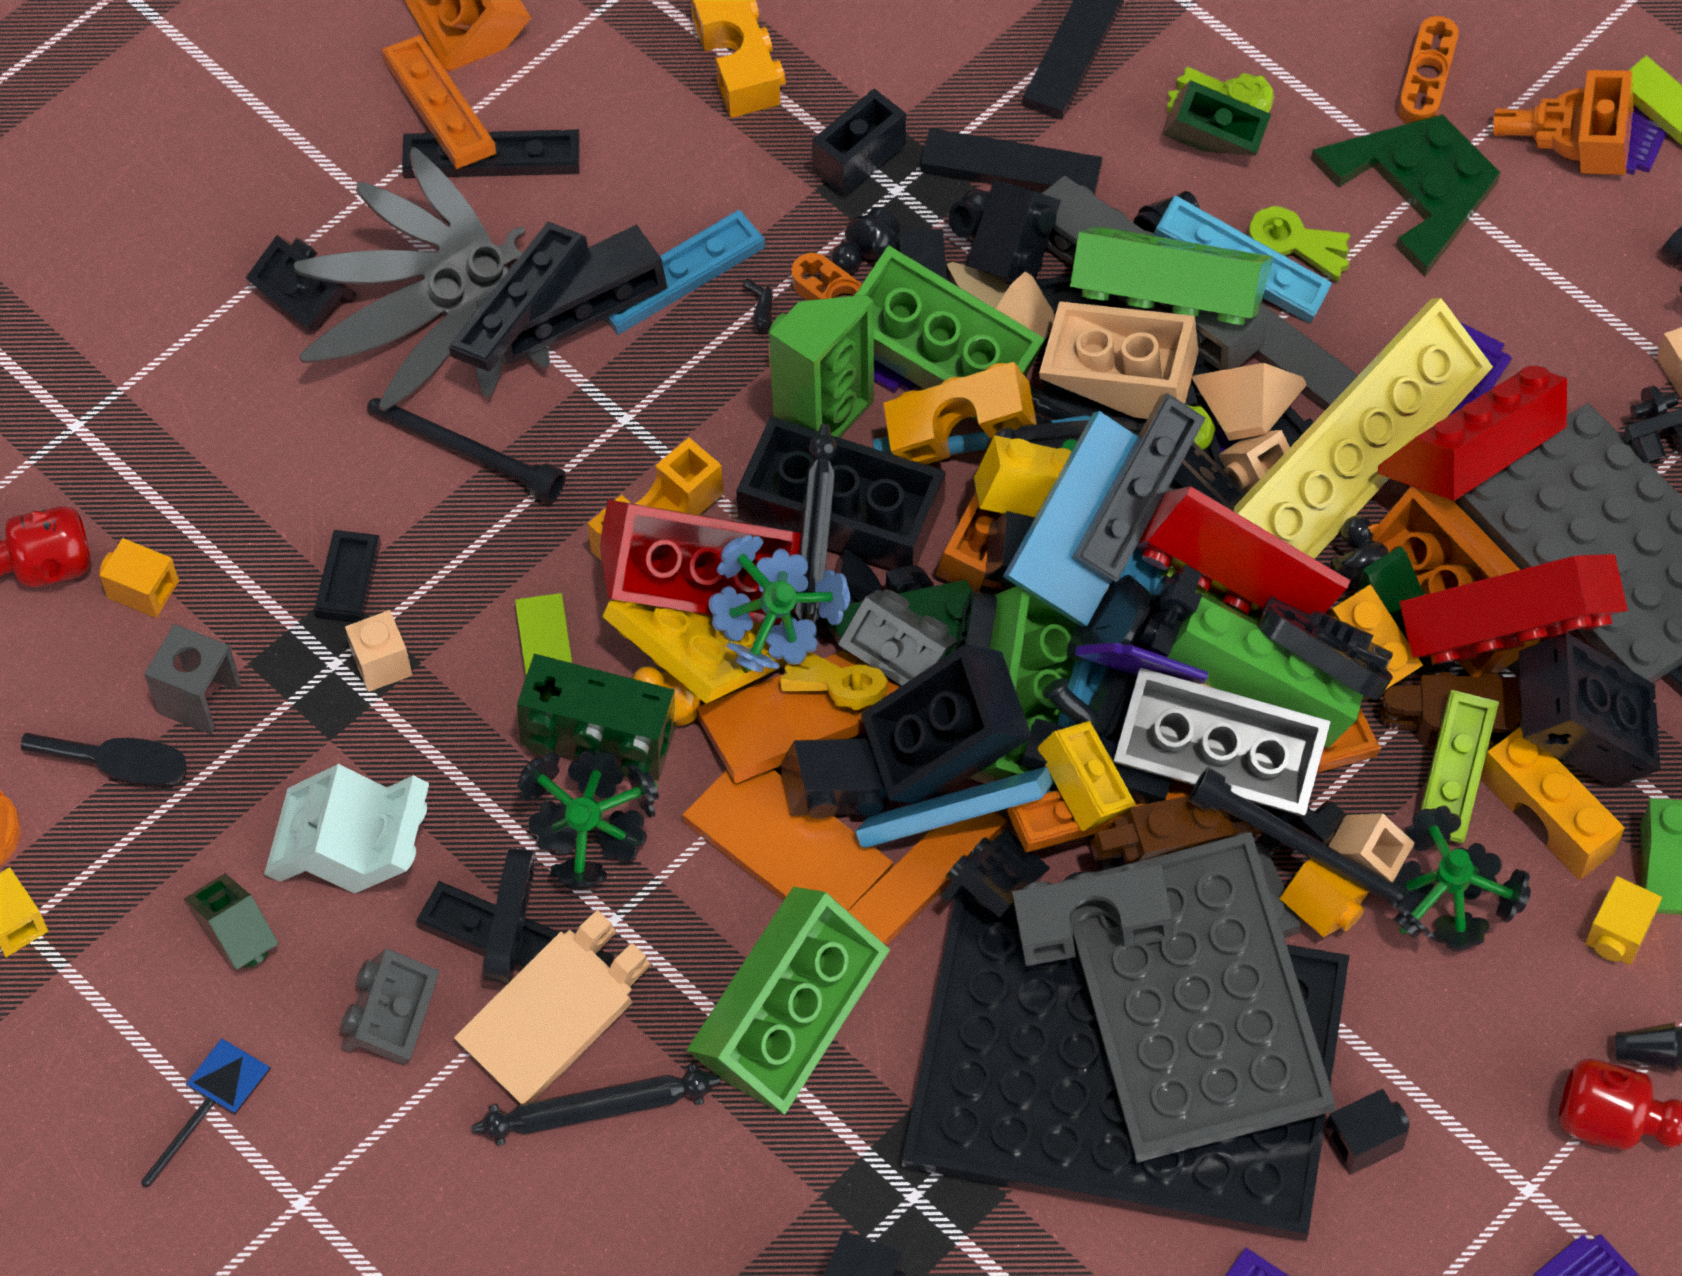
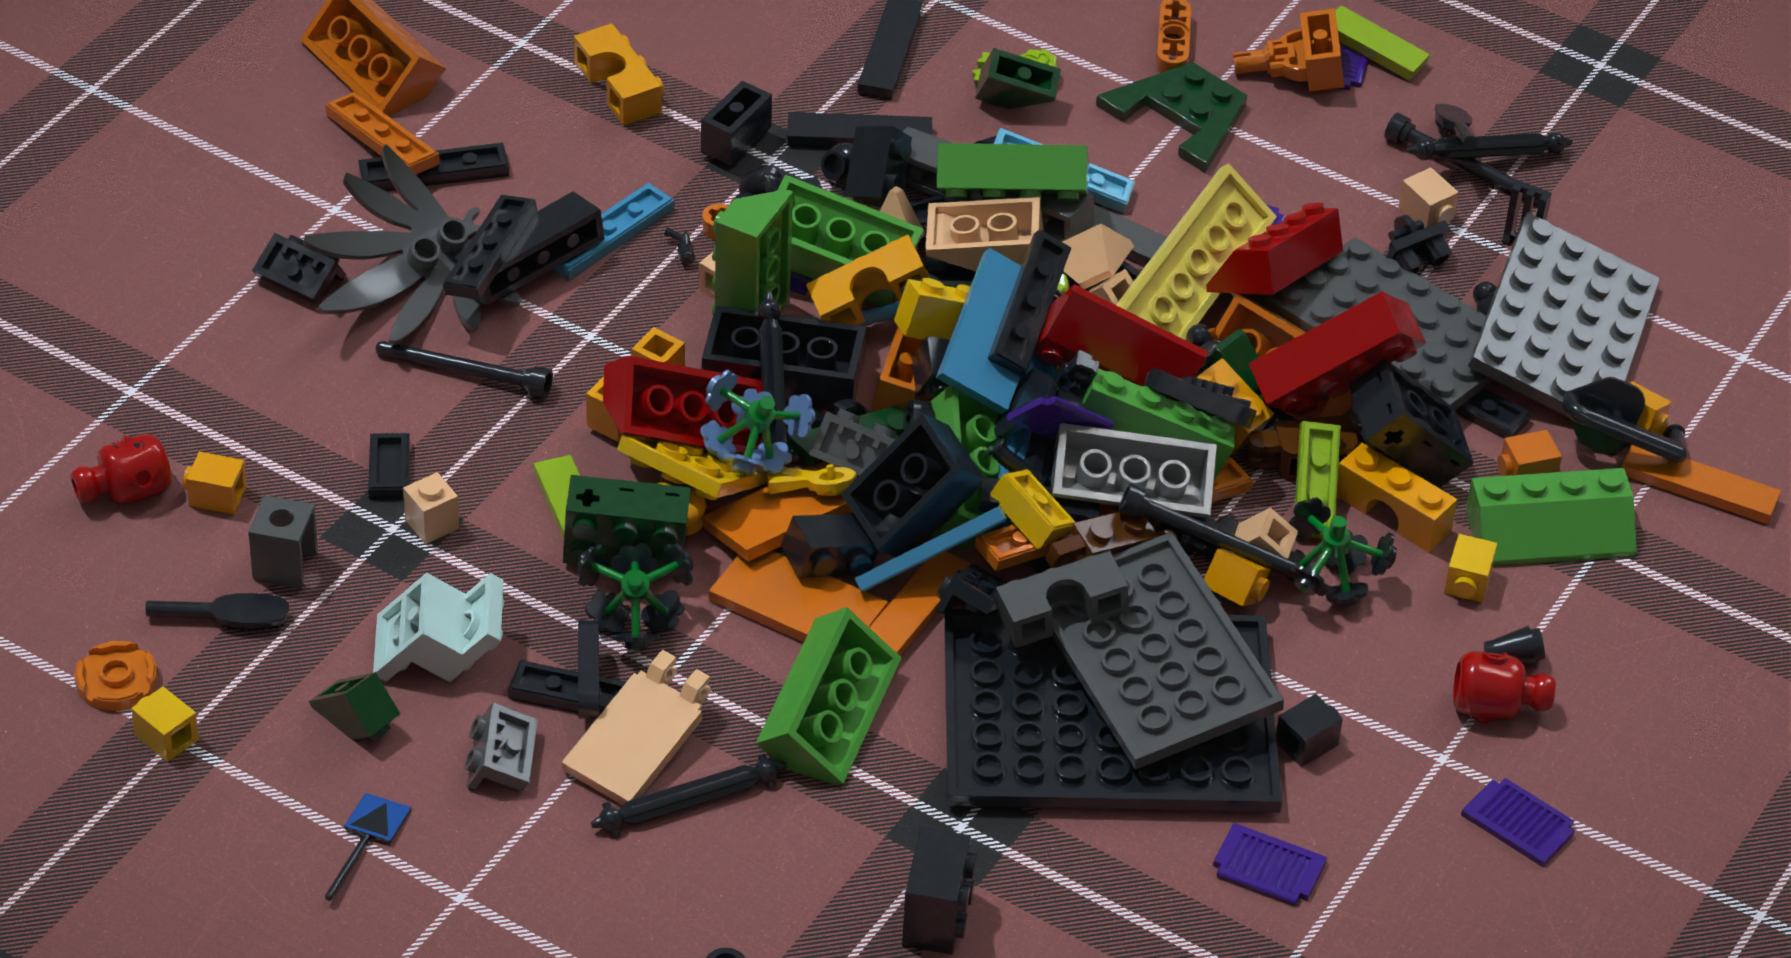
camera: 15 degrees left, 15 degrees down
(1286, 234) = (1120, 160): lime piece -> none

